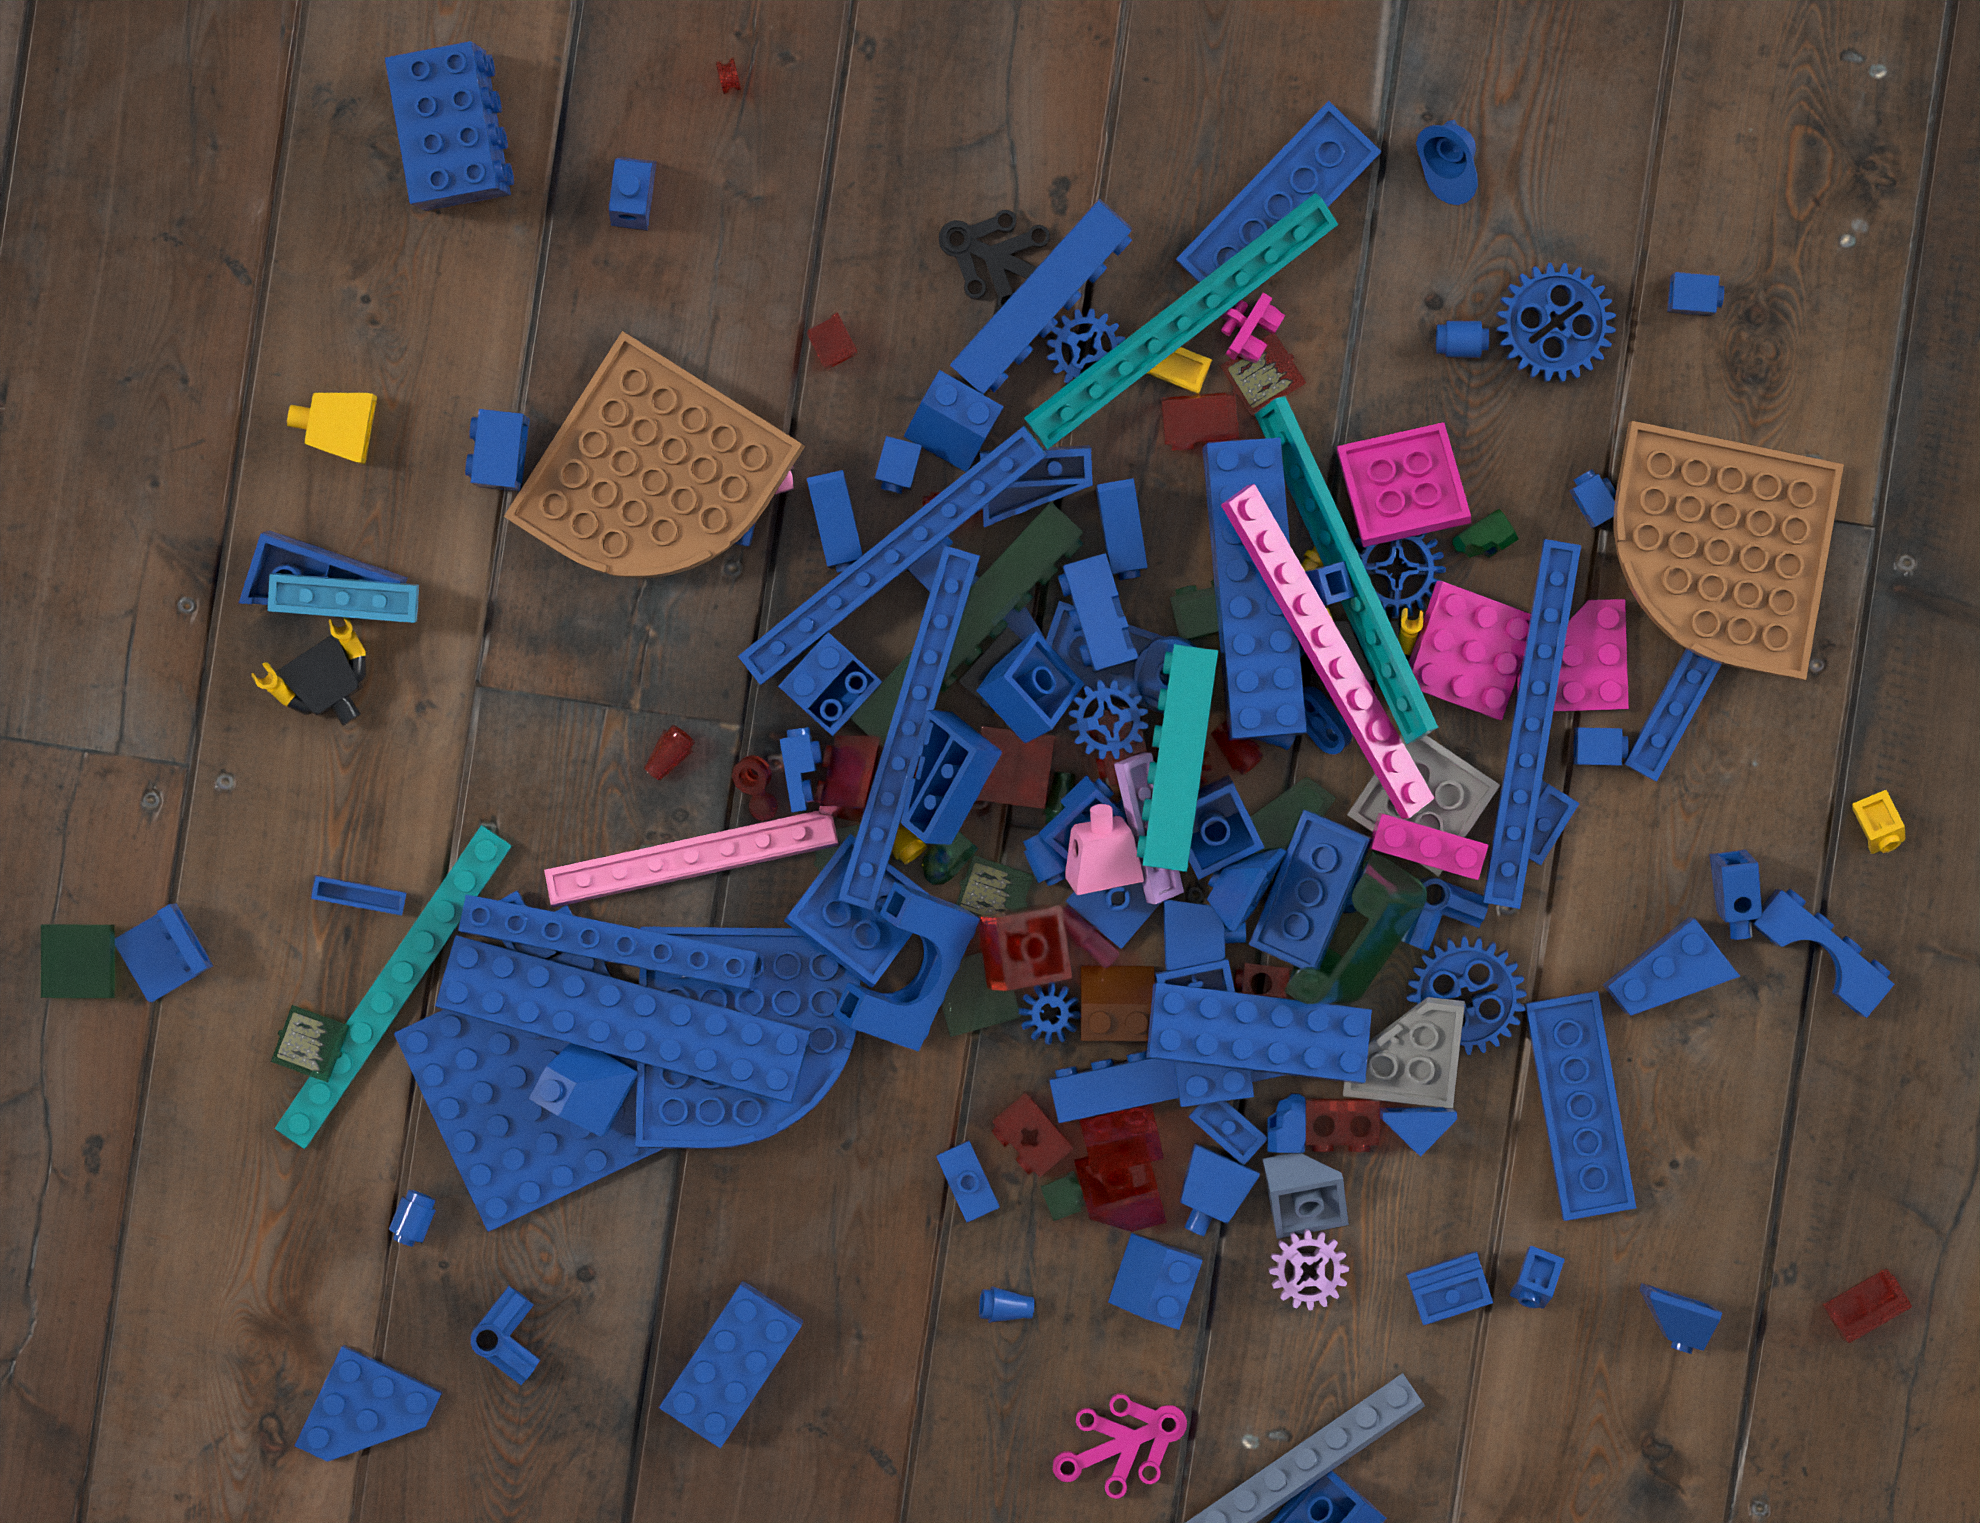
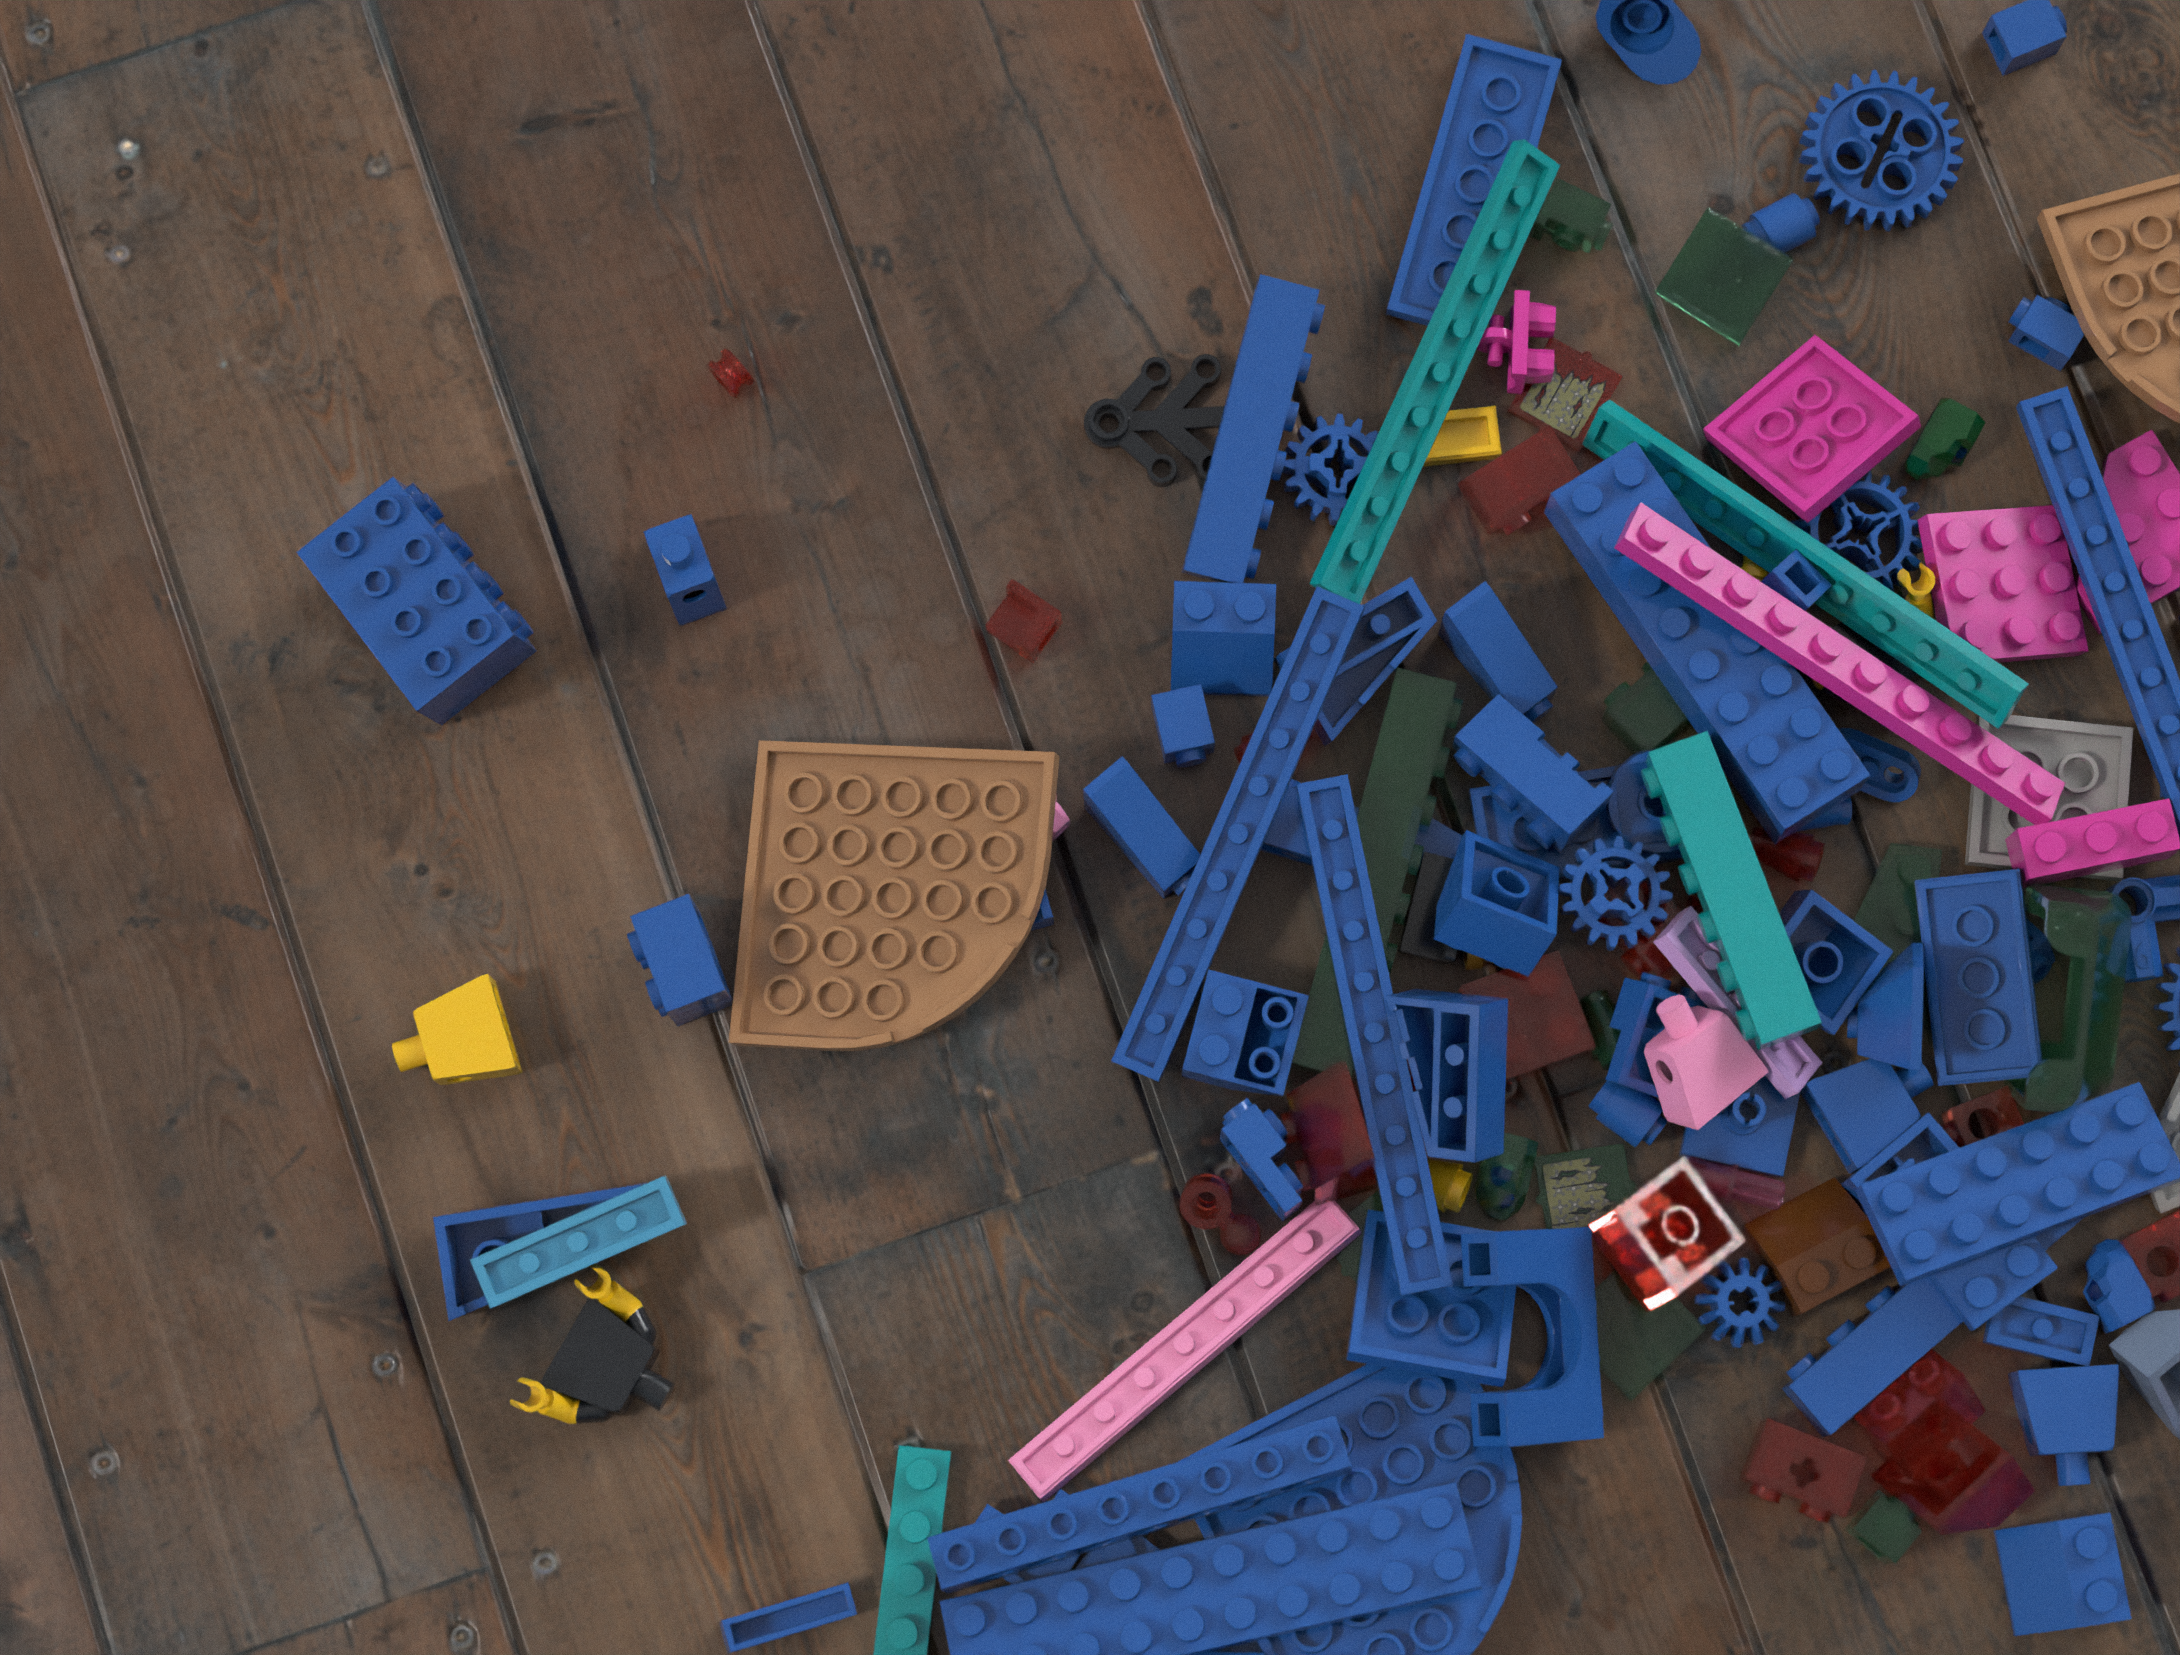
camera: 25 degrees left, 10 degrees down
(669, 752) = (1087, 1228): clear red cone -> none
(967, 1181) = (1754, 1574): blue plate -> none
(1330, 263) = (1574, 219): none -> clear green brick
(1406, 352) = (1724, 275): none -> clear green tile

